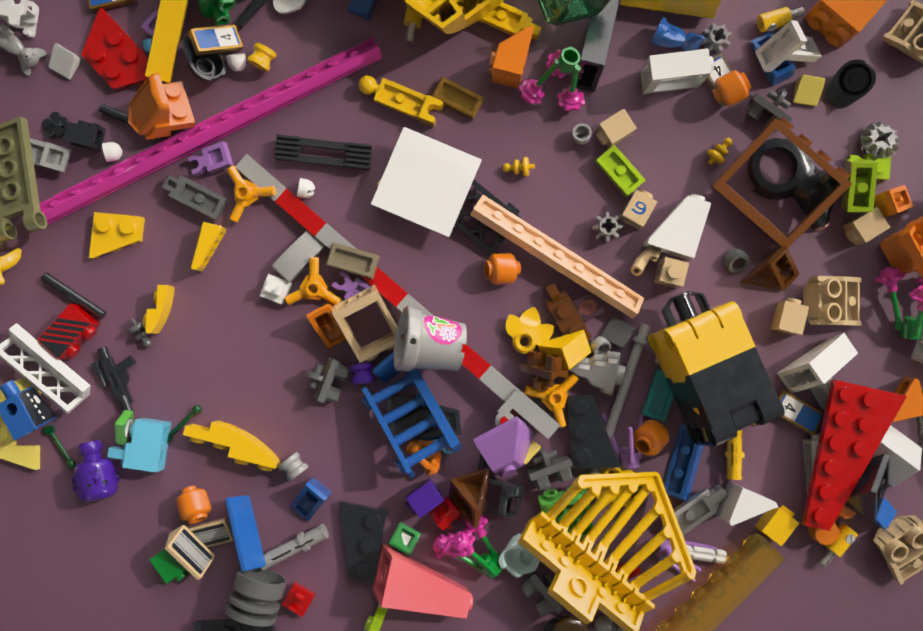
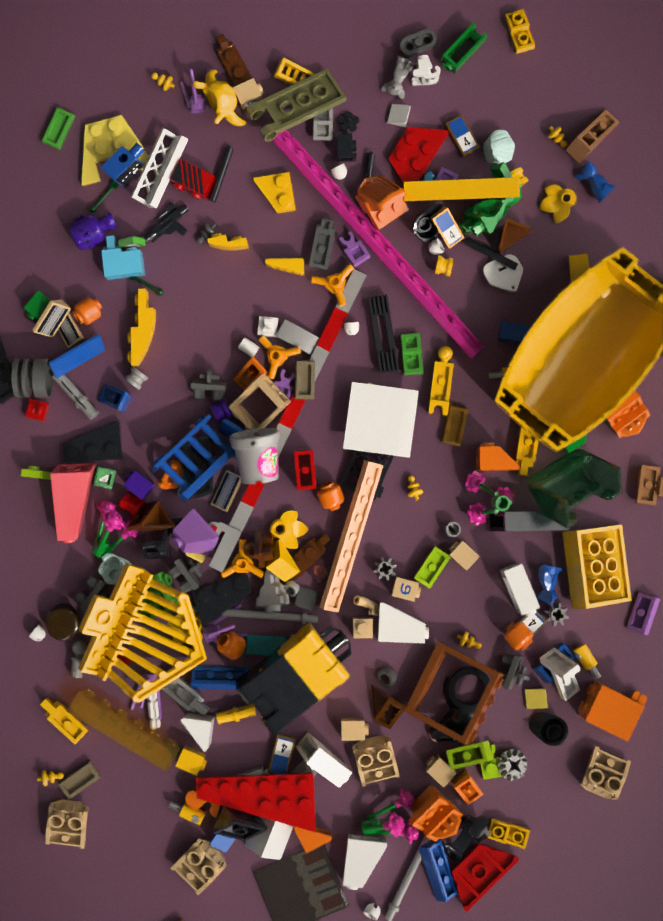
camera: 75 degrees right, 0 degrees up
(294, 319) = (248, 347): none -> white hinge
(357, 125) = (412, 354): none -> bright green slope
(461, 393) = (226, 491): none -> slope
(462, 289) = (305, 470): none -> red brick

